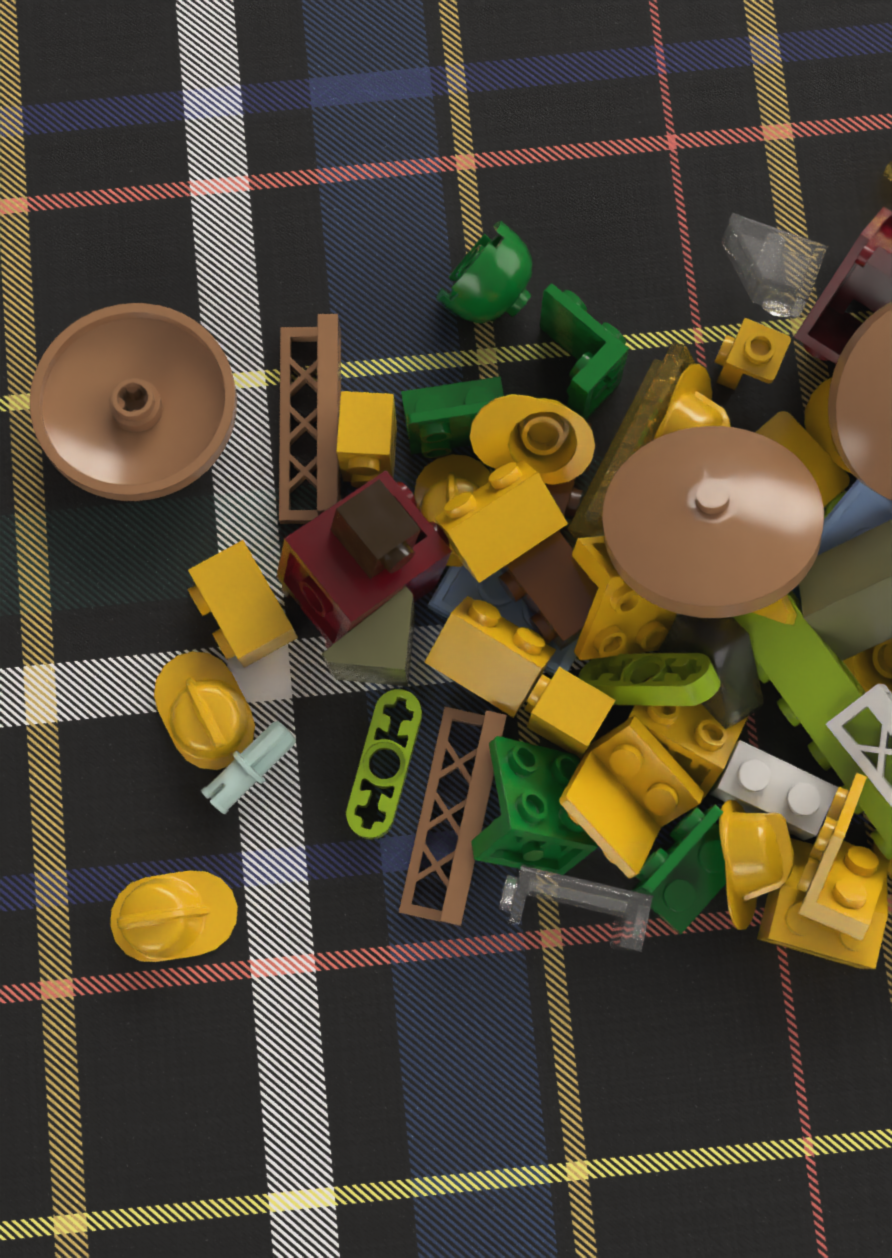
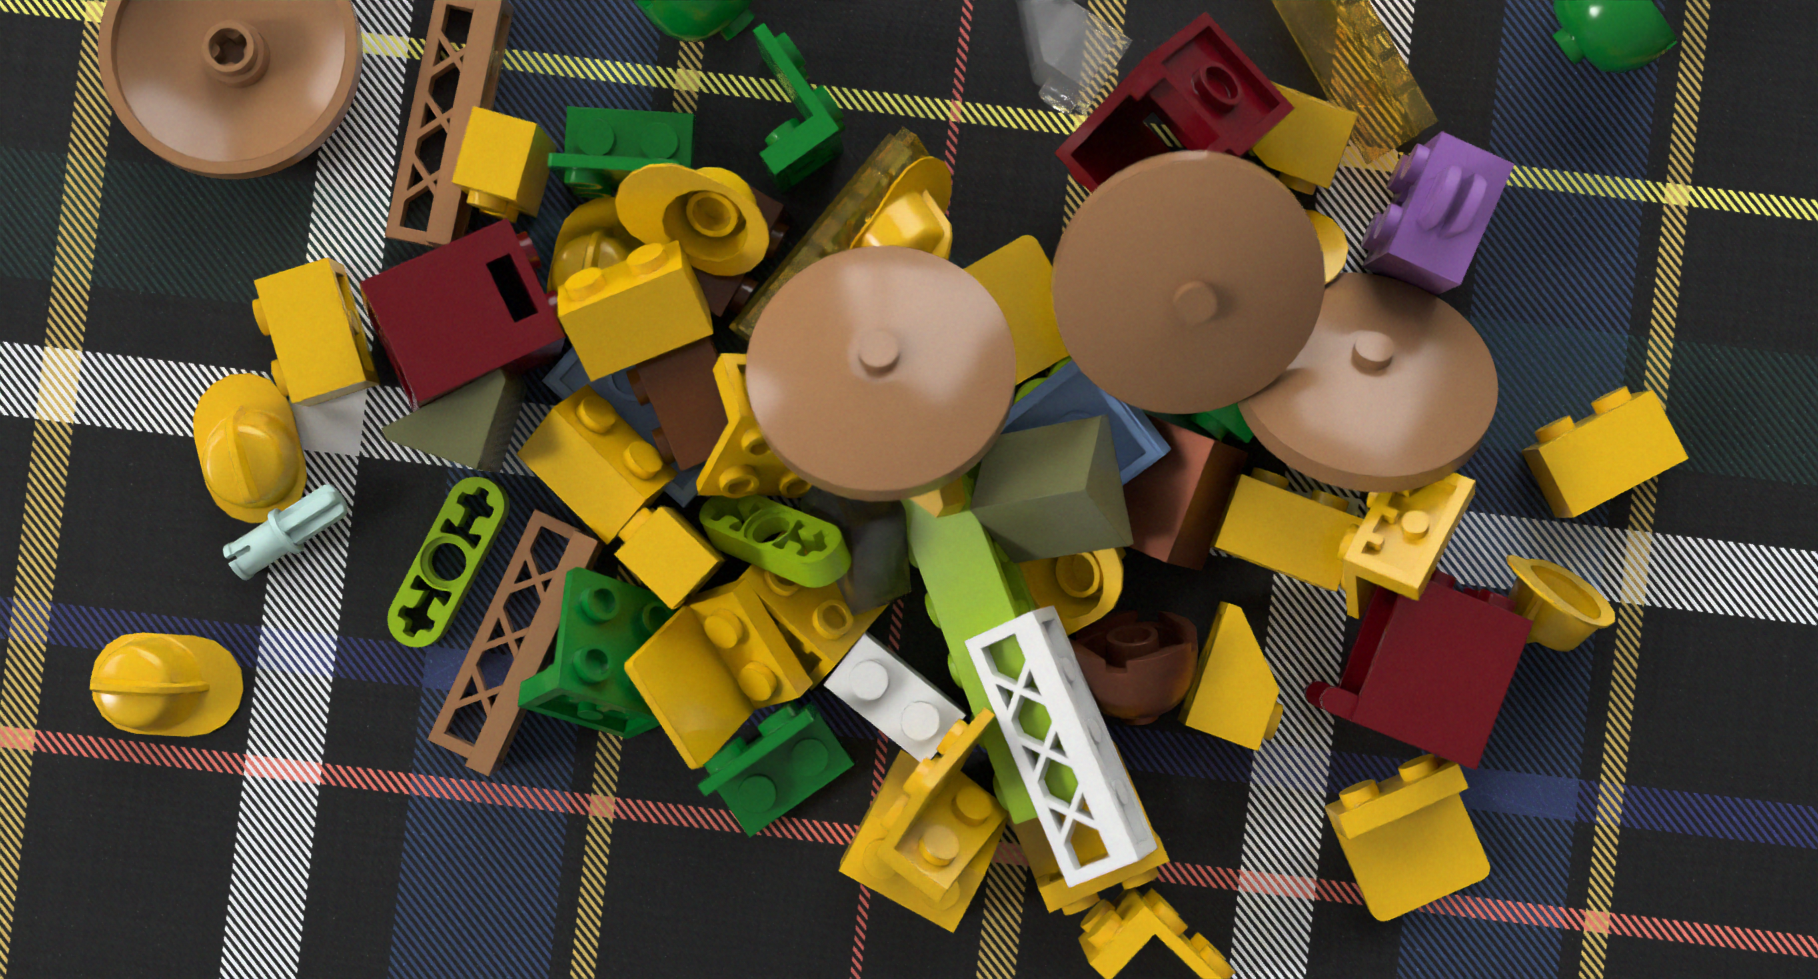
camera: 10 degrees right, 10 degrees up
(376, 530) = (469, 299): dark brown brick -> none
(628, 906) = (628, 770): clear panel -> none
(753, 352) = (1005, 158): yellow bracket -> none
(755, 856) = (844, 774): yellow piece -> none

